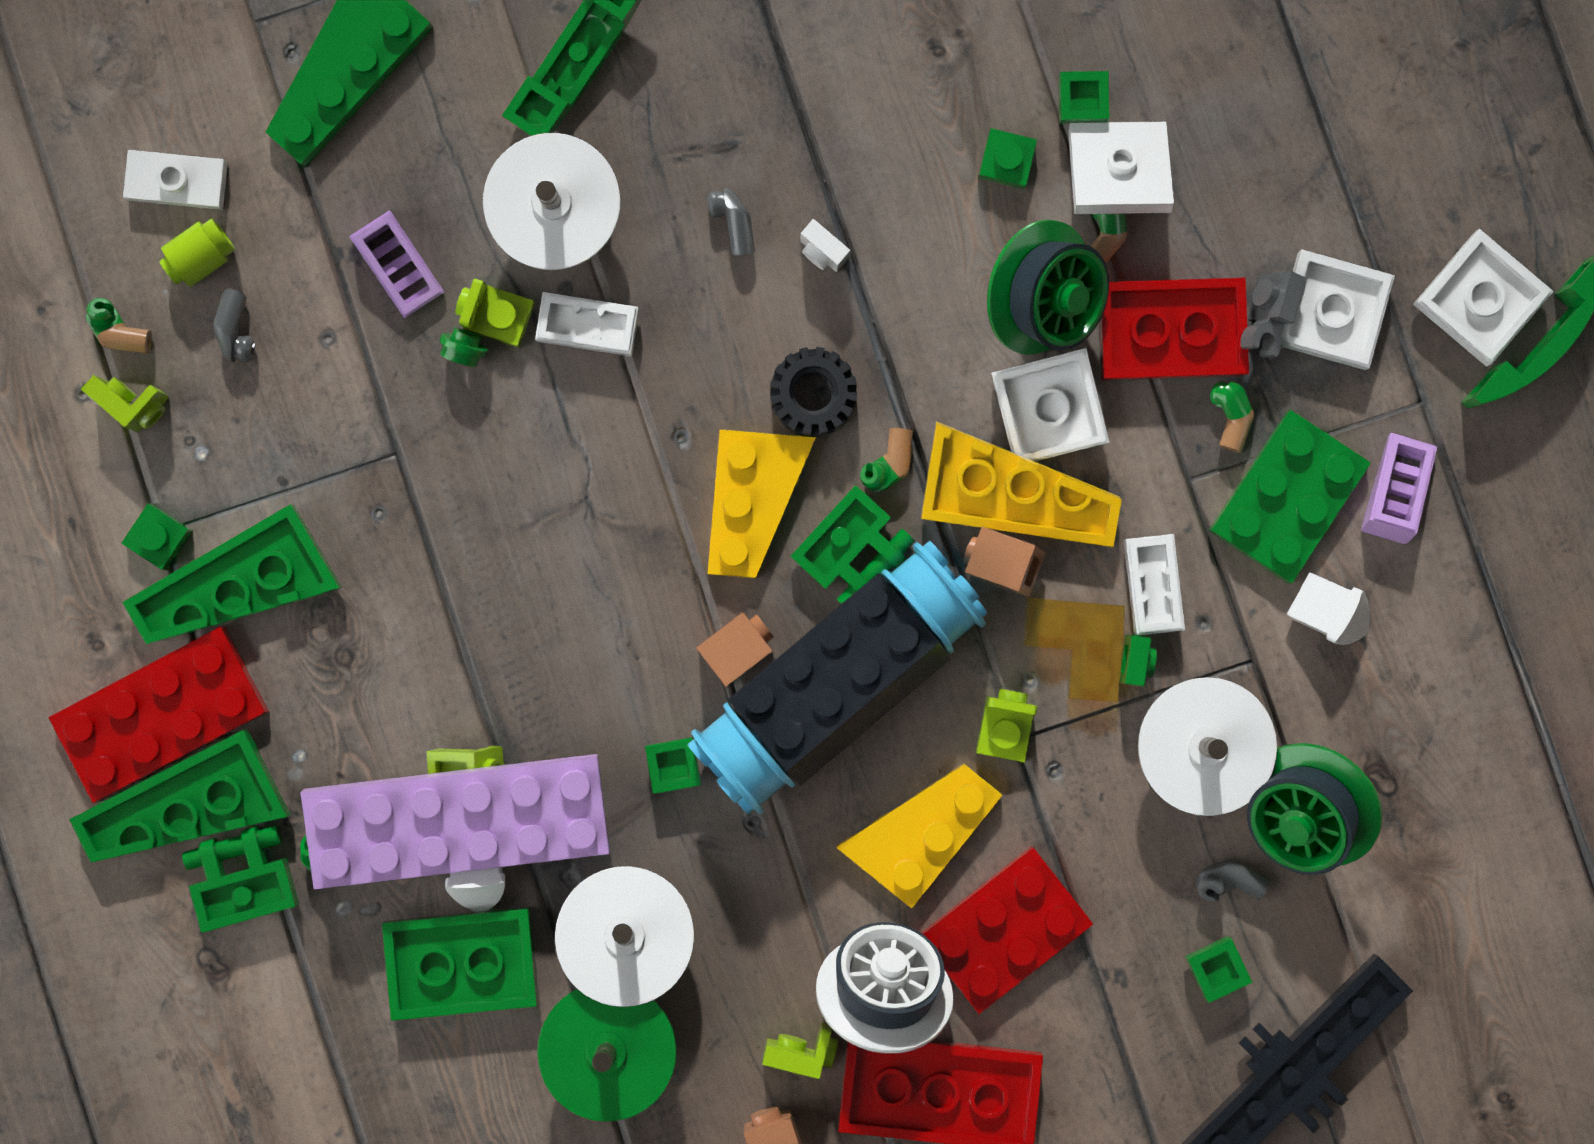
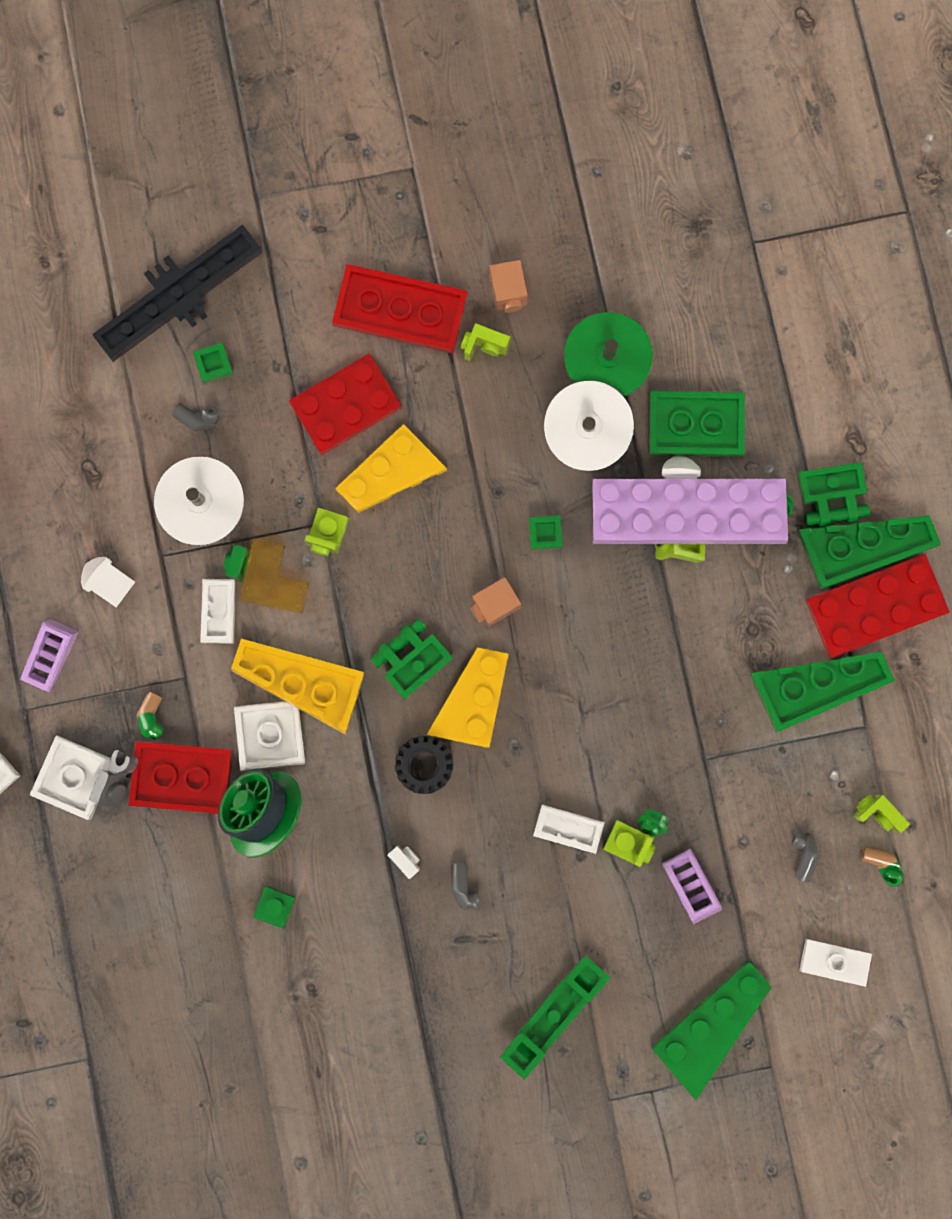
camera: 165 degrees left, 5 degrees down
(156, 536) = (868, 722): green plate -> none
(196, 253) = (825, 909): lime brick -> none
(551, 201) = (582, 912): white piece -> none
(839, 679) = (431, 572): black brick -> none
(885, 989) = (426, 373): white piece -> none
(893, 465) = (378, 710): arm -> none
(1003, 561) = (314, 637): nougat brick -> none
(1083, 97) = (217, 942): green plate -> none
(1112, 234) = (211, 852): arm -> none
(1120, 168) = (200, 890): white plate -> none
(1289, 496) = (121, 658): green plate -> none
(1314, 810) = (136, 451): green piece -> none

